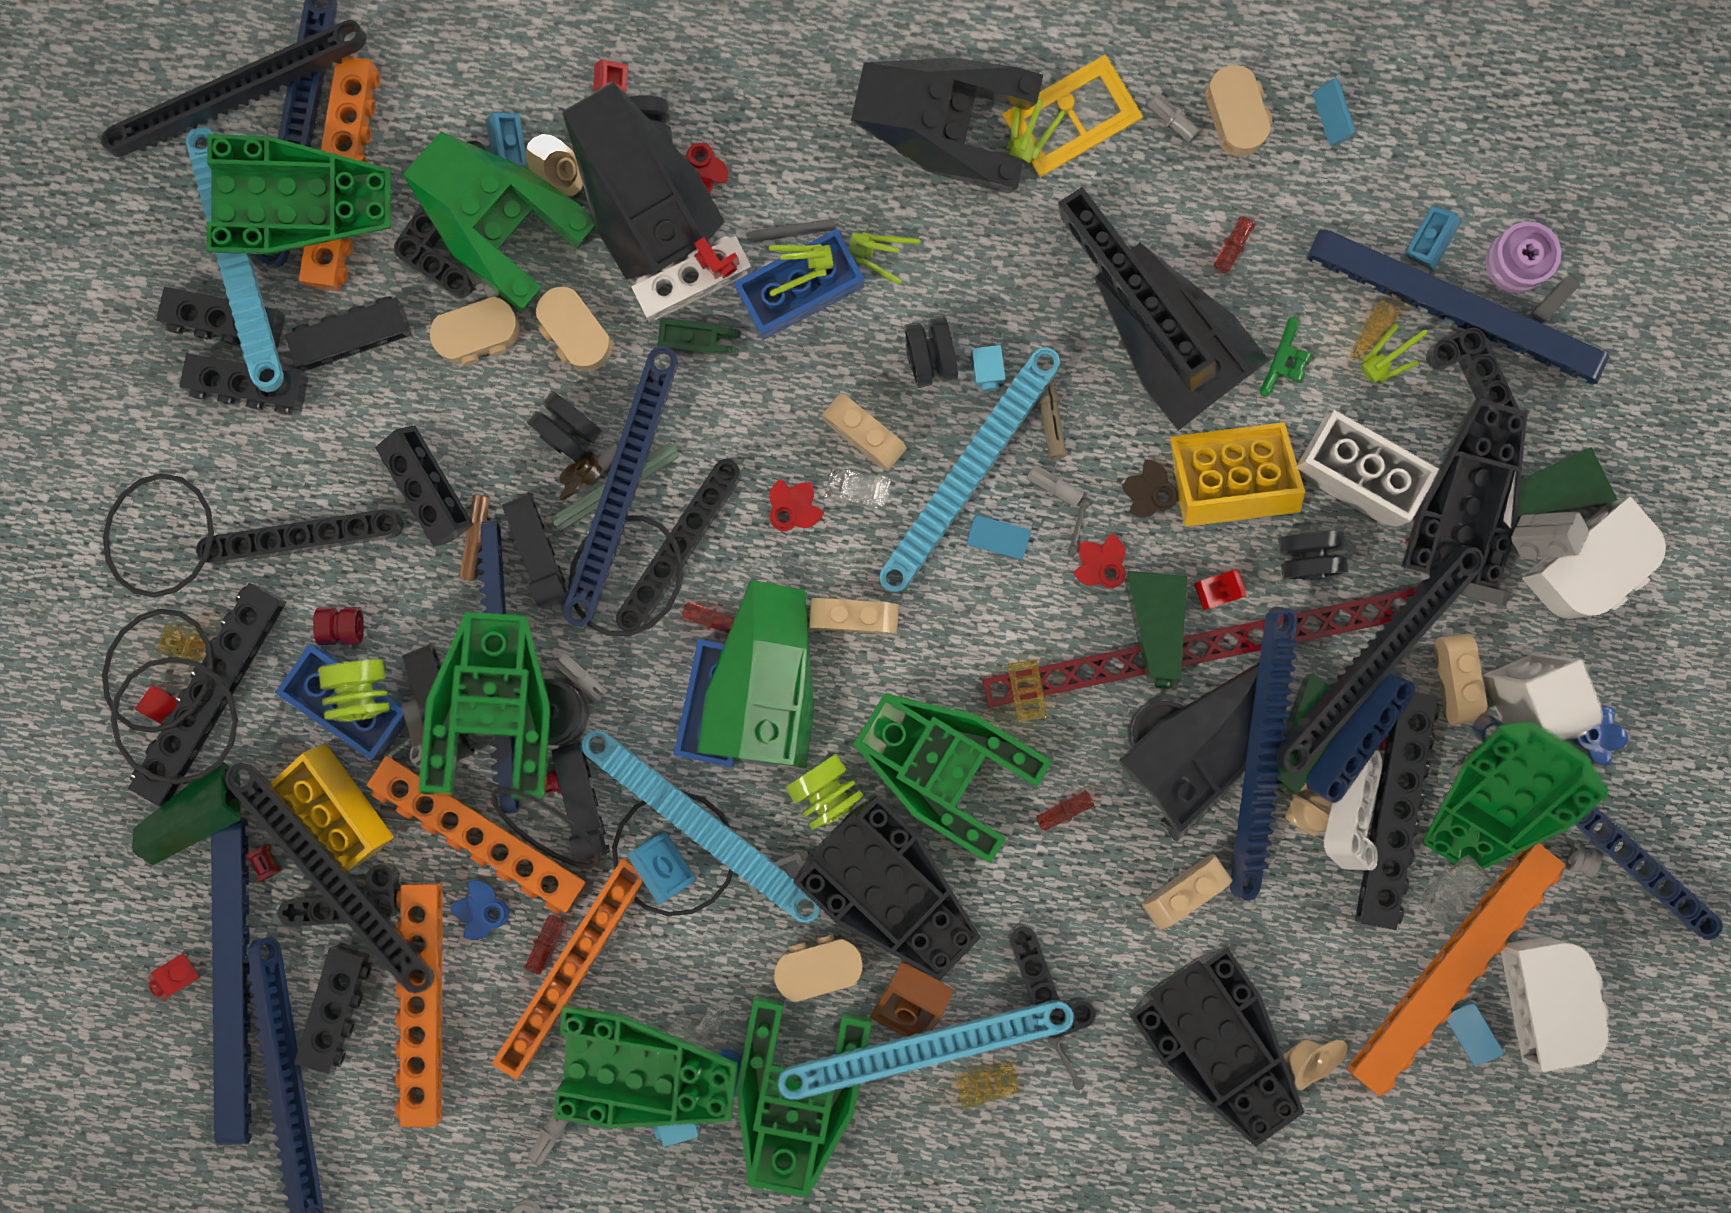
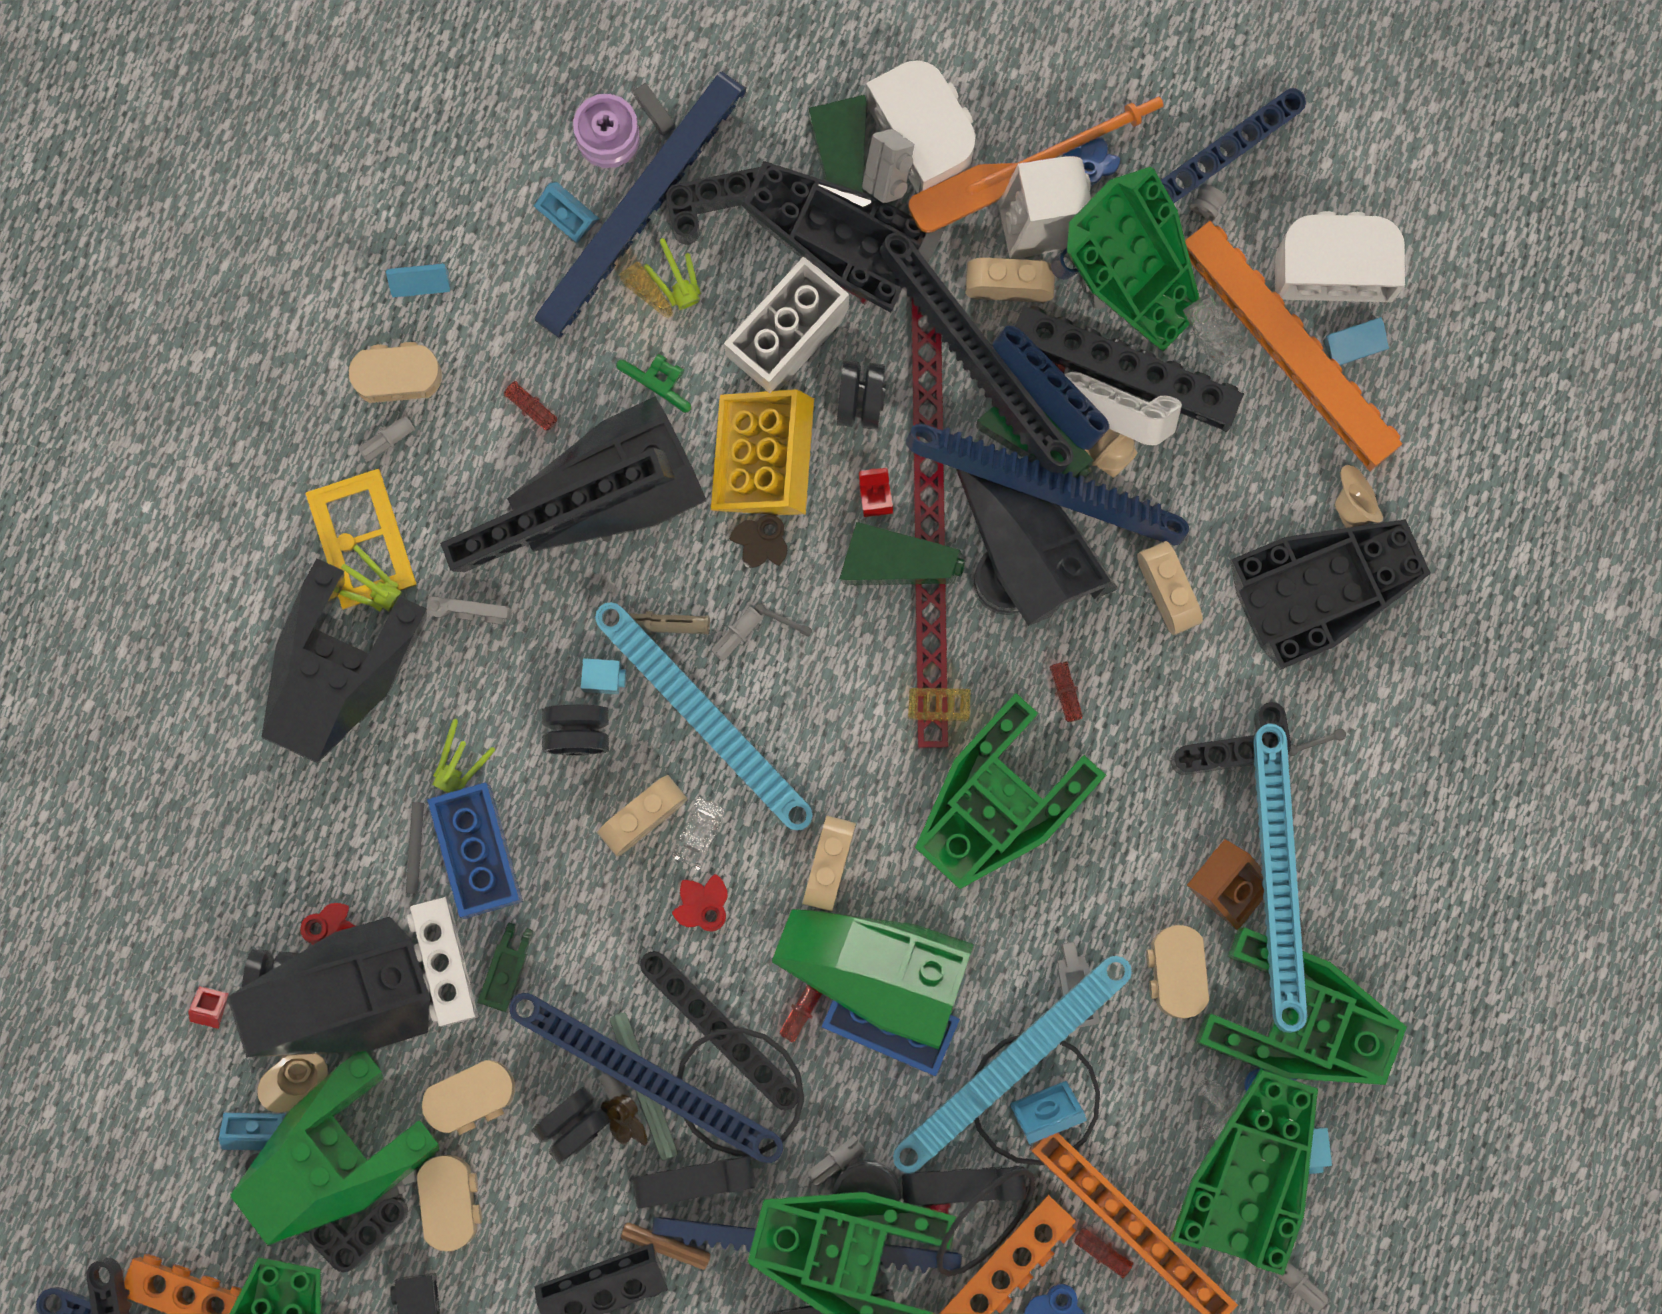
camera: 80 degrees left, 5 degrees down
(707, 258) = (428, 939): red bracket -> none
(817, 257) = (453, 825): lime plant -> none
(824, 792) = (1003, 928): lime wheel -> none
(888, 890) = (1112, 884): black wedge -> none
(984, 1074) = (1314, 825): clear yellow slope -> none
(998, 537) = (777, 701): dark azure slope -> none
(1024, 227) = (467, 609): none -> light grey hinge
(1098, 559) = (821, 607): red plate -> none
(1554, 636) = (987, 182): none -> orange piece

